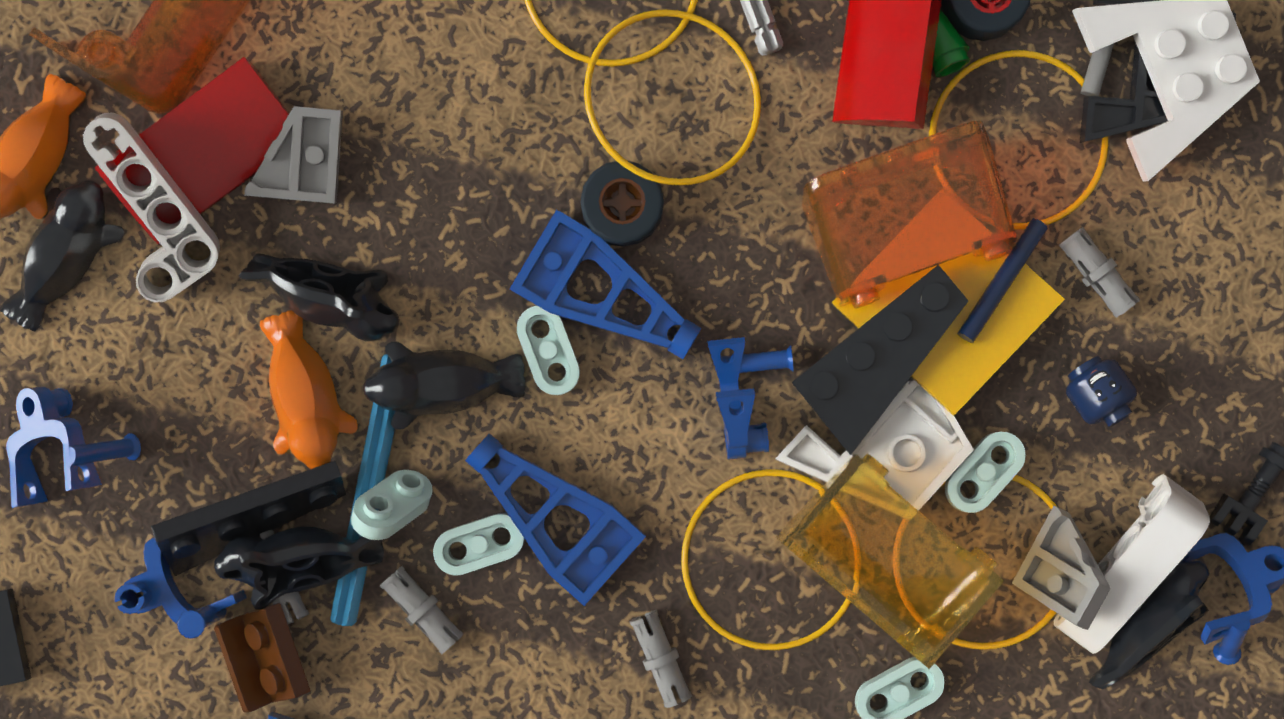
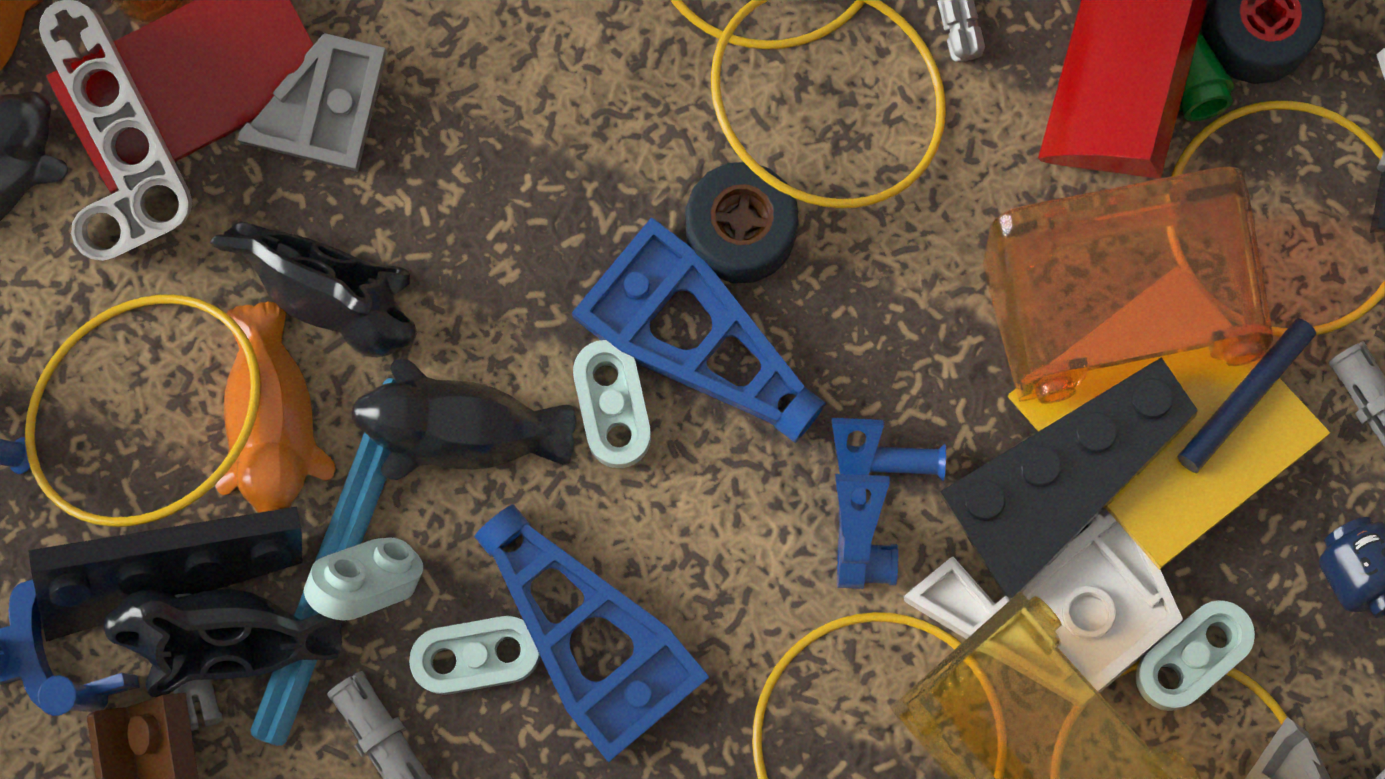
camera: 10 degrees right, 10 degrees down
(283, 434) = (205, 486): none -> yellow piece

